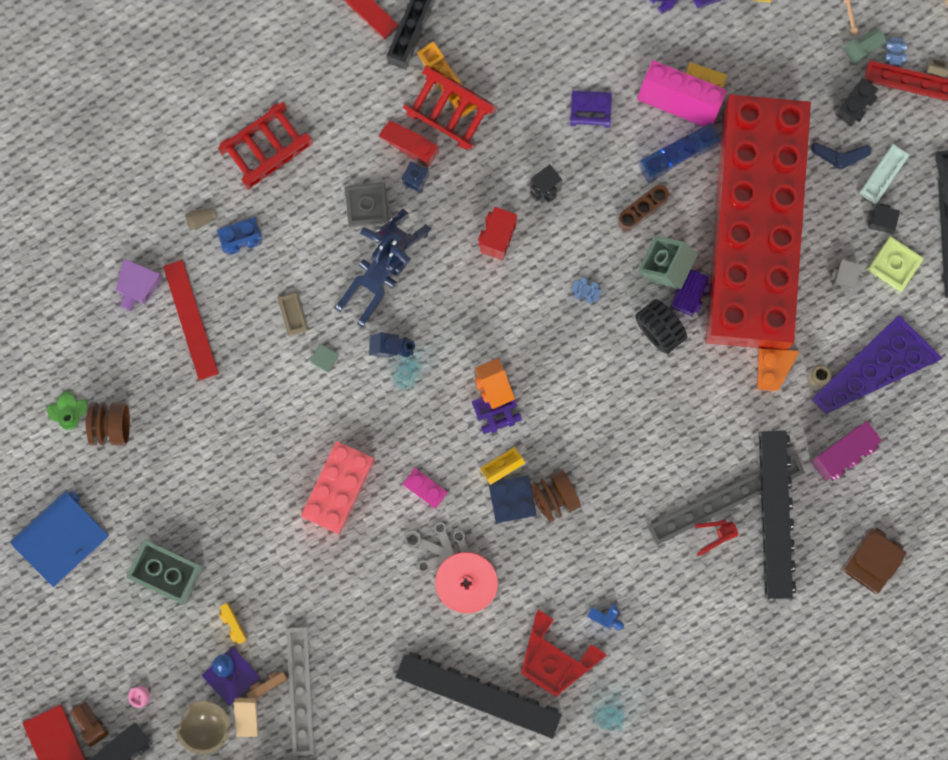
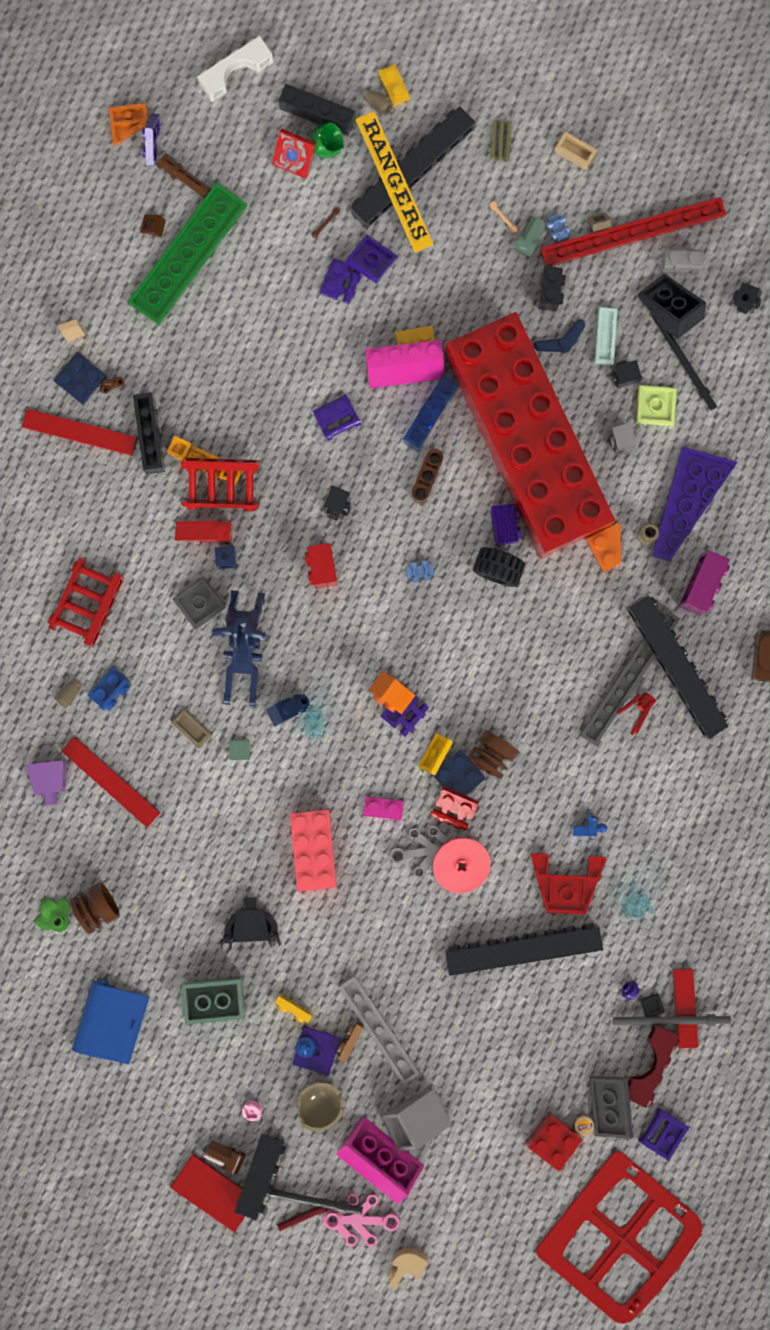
camera: 35 degrees left, 5 degrees up
(239, 523) = (250, 925): none -> black torso
(246, 717) = (348, 1077): tan tile -> none
(495, 522) = (457, 803): none -> plate
(668, 262) = (474, 510): sand green brick -> none

